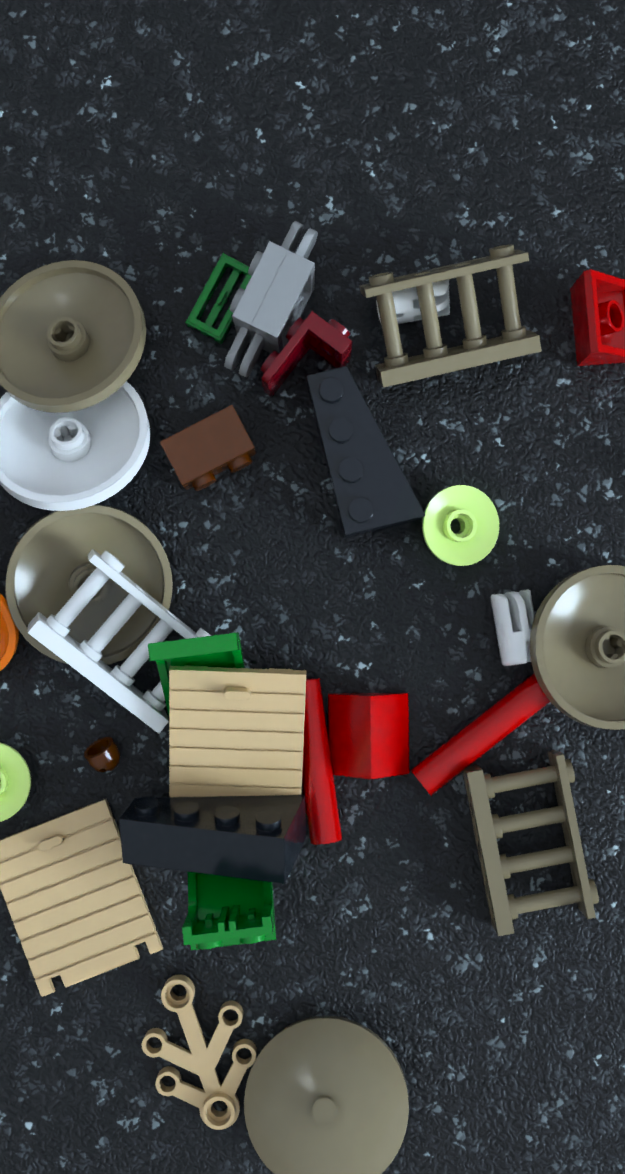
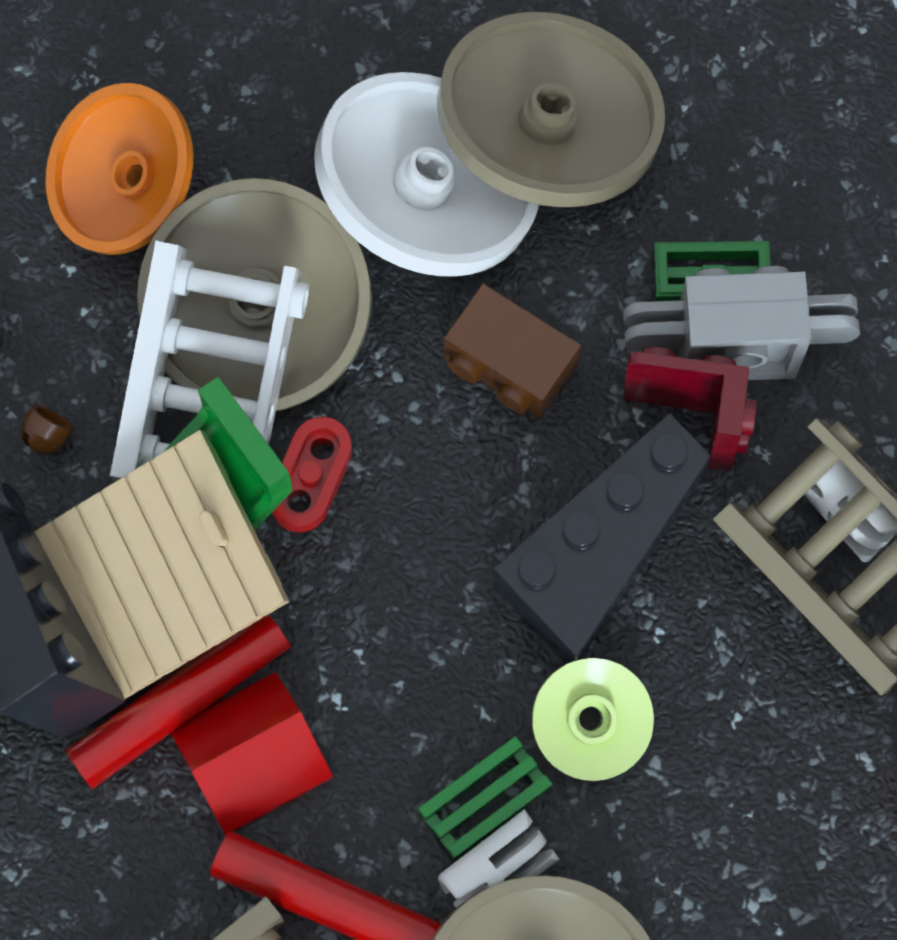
camera: 60 degrees right, 15 degrees down
(221, 609) = (311, 476): none -> red plate
(474, 646) = (525, 766): none -> green tile

